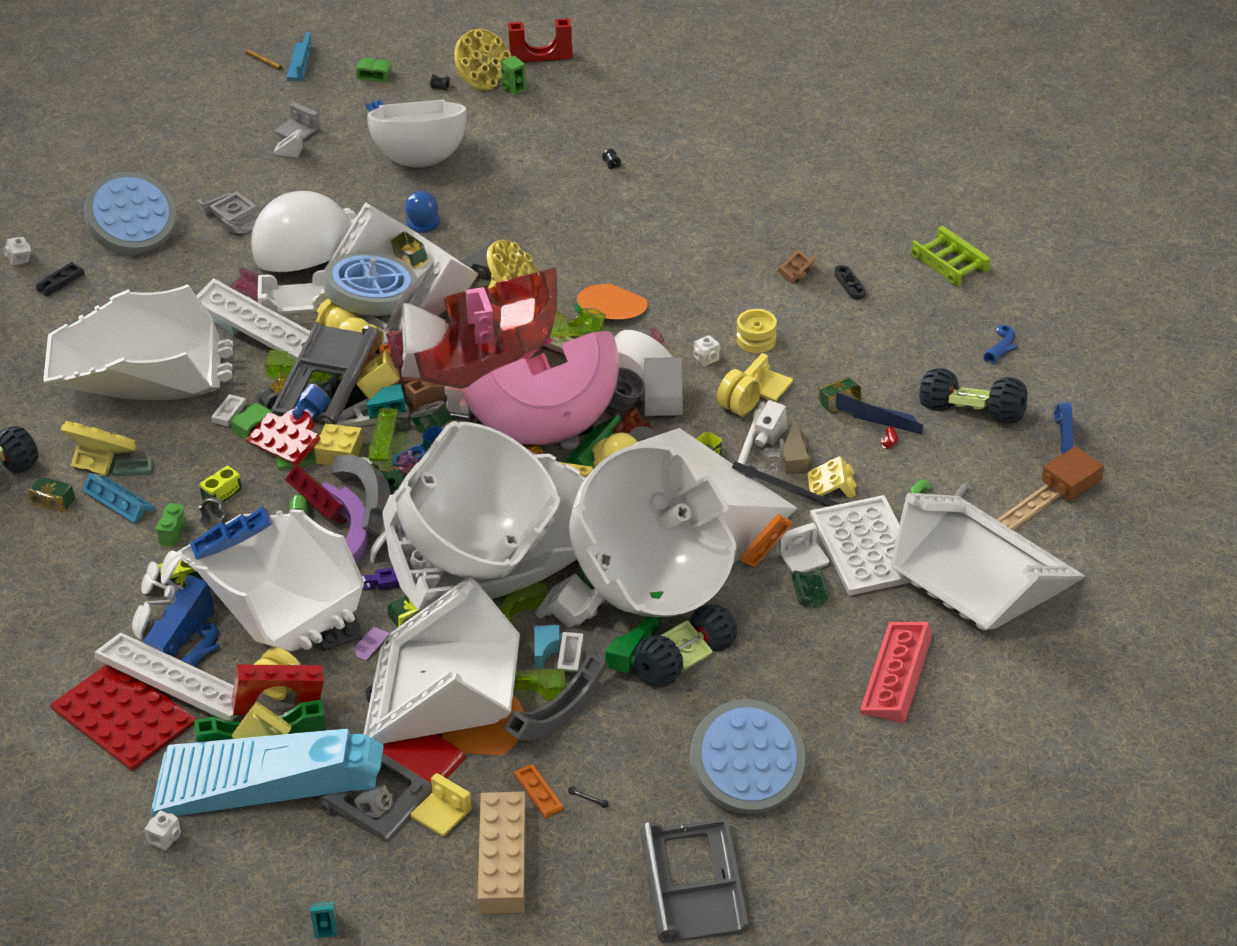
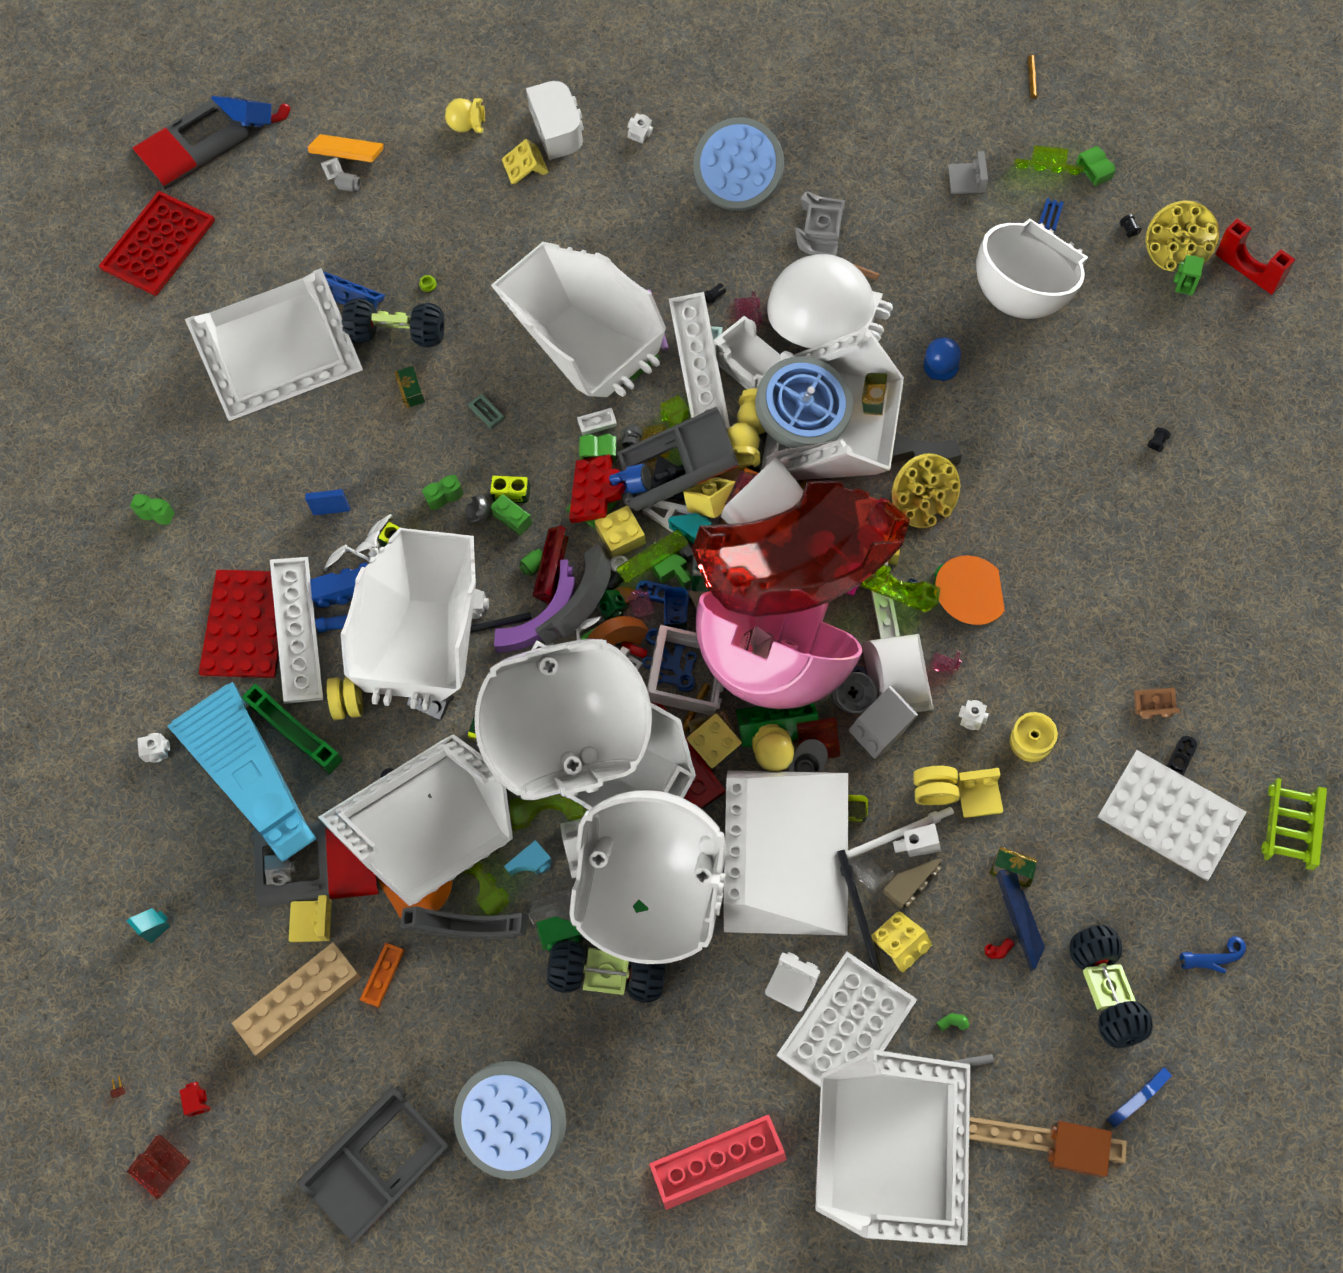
camera: 55 degrees right, 25 degrees up
(59, 279) = (638, 181): black hinge -> none
(89, 592) = (327, 502): none -> blue tile
(95, 447) = (477, 369): light yellow bracket -> none
(117, 497) = (443, 427): dark azure fence -> none
(226, 536) = (437, 552): blue slope -> none
(244, 496) = (511, 515): none -> bright green brick
(254, 679) = (306, 702): red arch -> none
(261, 723) = (283, 736): light yellow bracket -> none
(291, 145) = (938, 193): white slope -> none
(300, 59) = (1056, 102): dark azure fence -> none
(338, 85) = (1049, 158): none -> clear neon green bracket
(370, 642) = (438, 730): lavender sticker -> none
(405, 434) = (671, 567): none -> bright green brick
(480, 313) = (829, 514): bright pink panel -> none
(571, 652) = (528, 890): white slope -> none
(603, 803) = (402, 999): black hinge -> none
(765, 540) = (767, 949): orange tile -> none
(810, 588) = (755, 1019): clear green bracket -> none
(882, 306) = (1172, 815): none -> white plate

